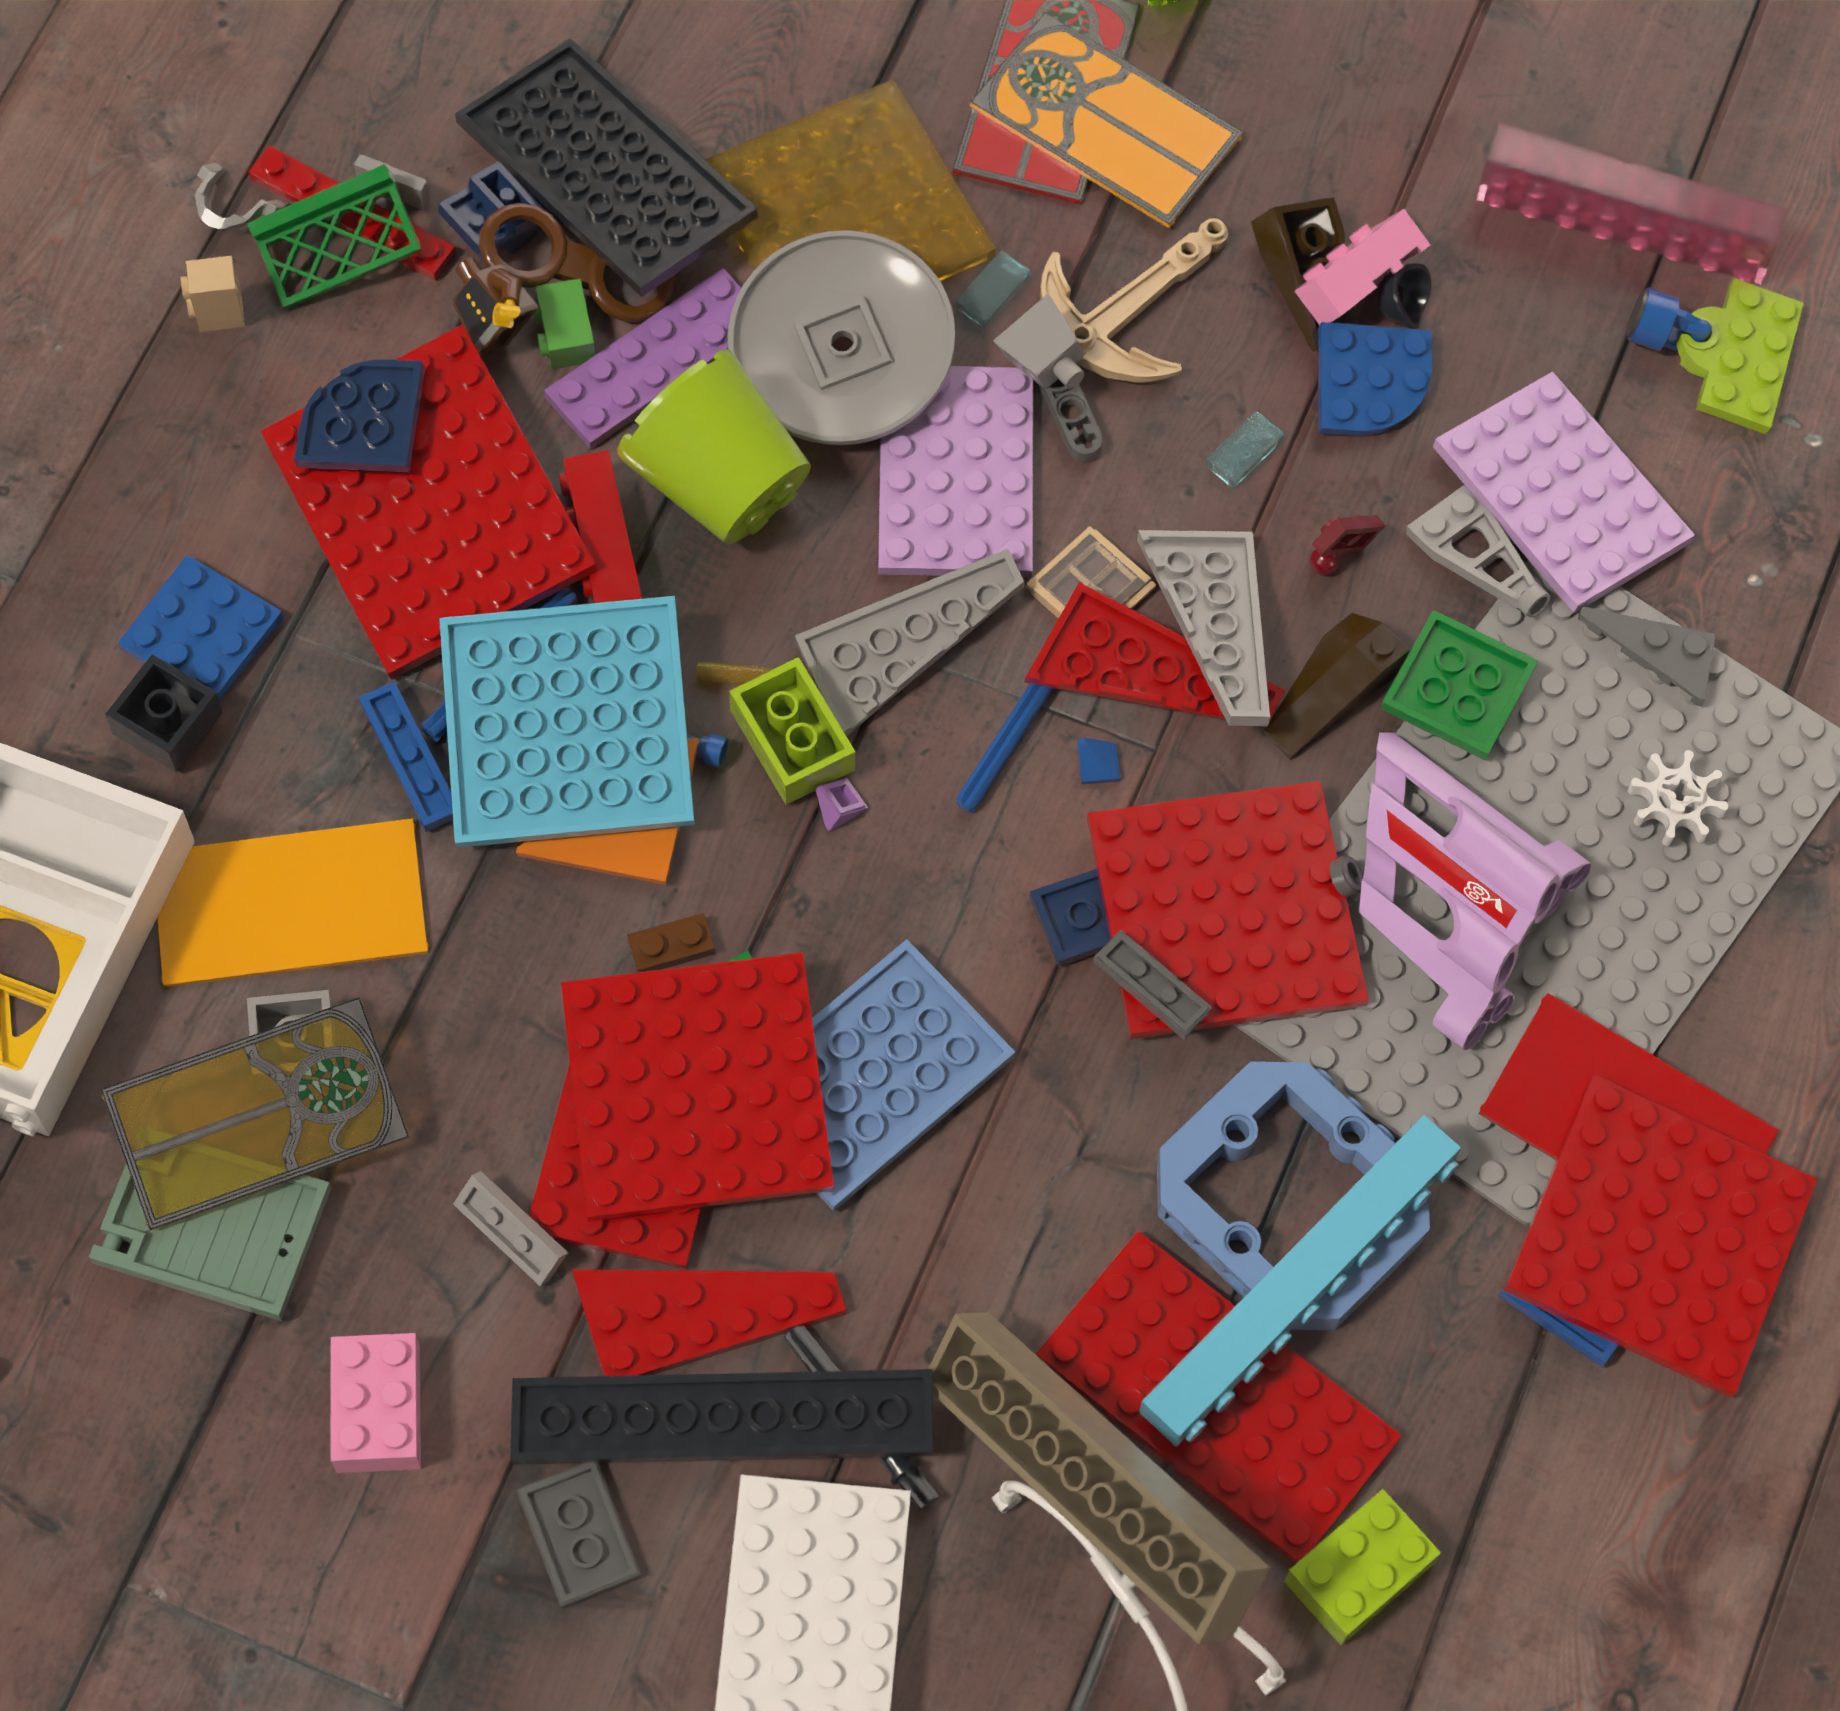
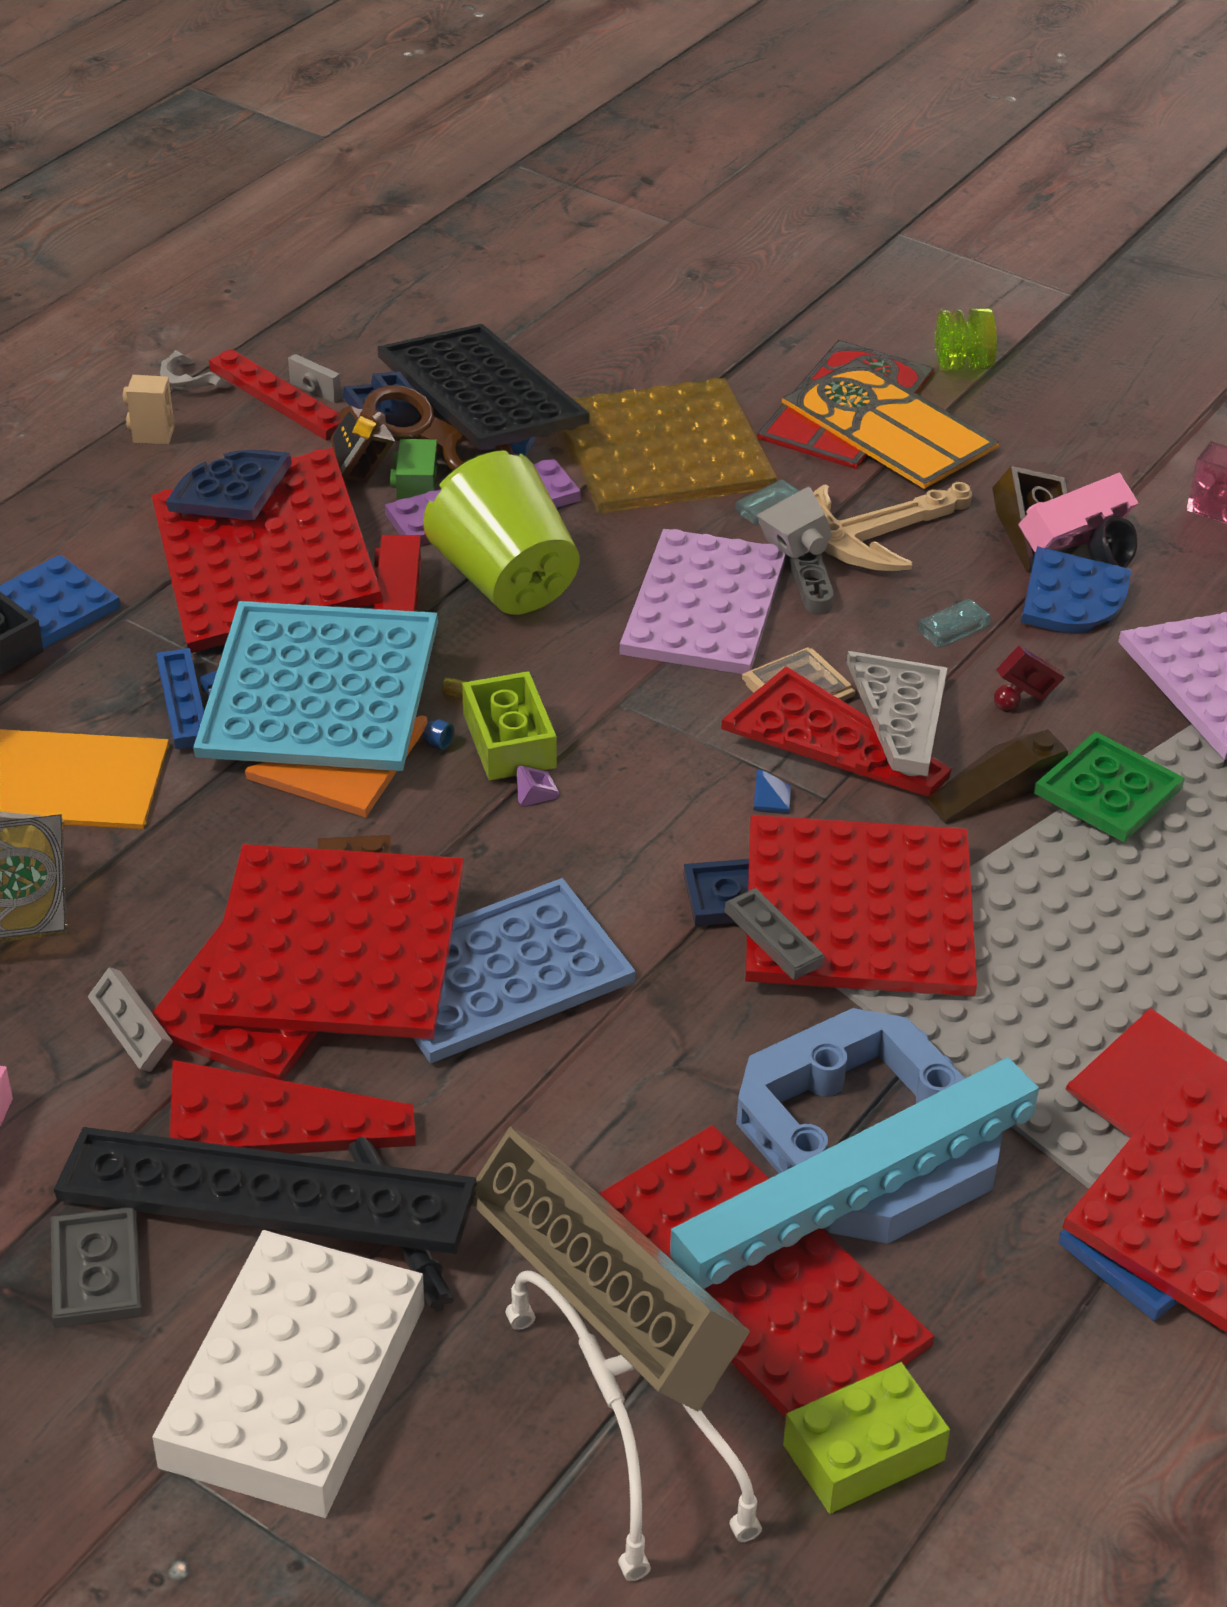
camera: 15 degrees right, 25 degrees down
(327, 206) = (253, 377): green fence -> none
(851, 289) = (668, 477): light grey dish -> none
(886, 645) = (610, 689): light grey wing -> none
(1002, 746) = (691, 771): blue axle -> none
(1346, 875) = (976, 894): dark grey tile -> none
(1453, 519) = (1115, 693): light grey plate -> none
(1484, 870) = (1104, 912): lavender panel -> none

